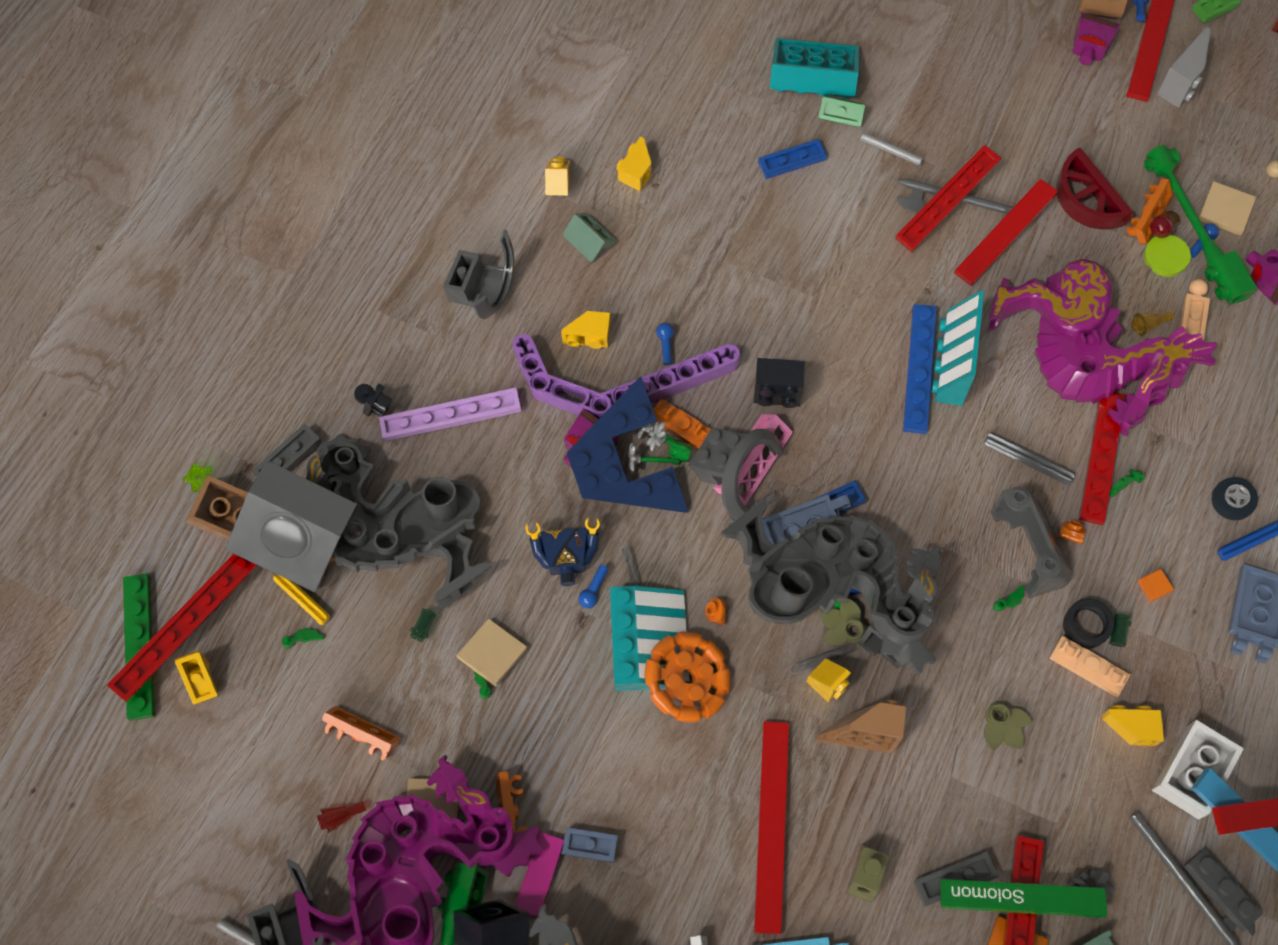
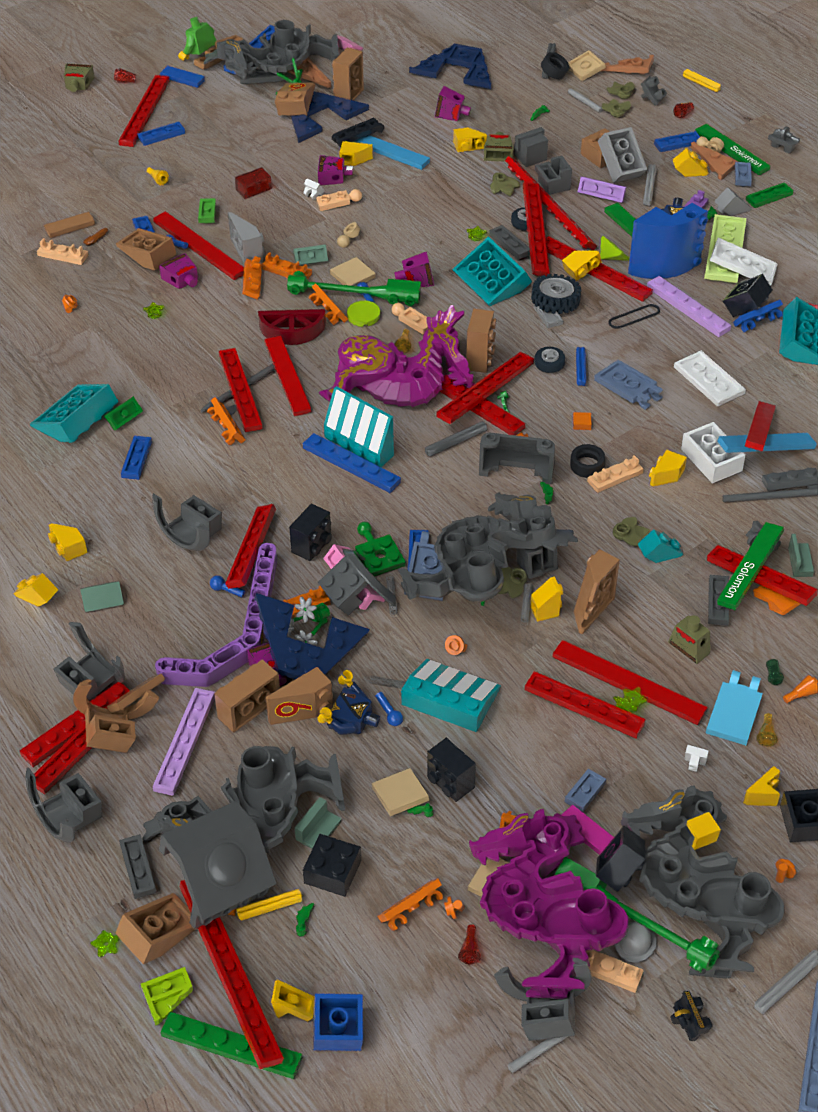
camera: 65 degrees left, 20 degrees down
(163, 559) = (166, 993): none -> lime wing
(190, 731) = (338, 1022): none -> blue brick
(313, 358) = (68, 810): none -> dark grey piece
(367, 632) = (332, 865): none -> black brick
(374, 401) = (138, 780): black hips -> none
(375, 776) = (451, 907): none -> orange plate
(376, 322) = (62, 761): none -> red plate
(411, 592) = (316, 822): none -> sand green panel
(422, 626) = (353, 832): clear green pin -> none
(423, 308) = (59, 734): none -> red plate
(428, 334) = (108, 729): none -> medium nougat piece
(478, 338) = (135, 693): none -> medium nougat tile
(525, 441) = (246, 695): none -> medium nougat brick
(533, 690) = (451, 769): none -> black brick
(555, 498) = (300, 698): none -> medium nougat slope
(588, 330) = (183, 624): yellow slope -> none
(697, 666) = (495, 677): orange plate -> none
(708, 793) = (585, 704): none -> red plate
(722, 264) = (193, 527): none -> dark grey piece
(726, 837) = (625, 703): none -> clear neon green plate
(734, 333) = (249, 548): none -> red plate
(753, 841) = (636, 694): none -> clear neon green plate
(799, 453) = (383, 545): none -> green plate
(894, 212) = (226, 420): none -> orange plate
(906, 155) = (173, 404): light grey bar -> none
(996, 773) = (659, 547): none -> teal slope
(1013, 52) = (154, 310): none -> clear neon green plate
(1119, 635) = (608, 452): clear green pin -> none
(1130, 449) = (485, 387): none -> red tile
(1137, 112) = (252, 277): none -> orange plate
(1163, 224) = (343, 301): dark red piece -> none
(1183, 136) = (284, 267): none -> orange plate
(1193, 404) = (480, 340): none -> medium nougat brick
(1222, 147) = (310, 254): none -> sand green panel

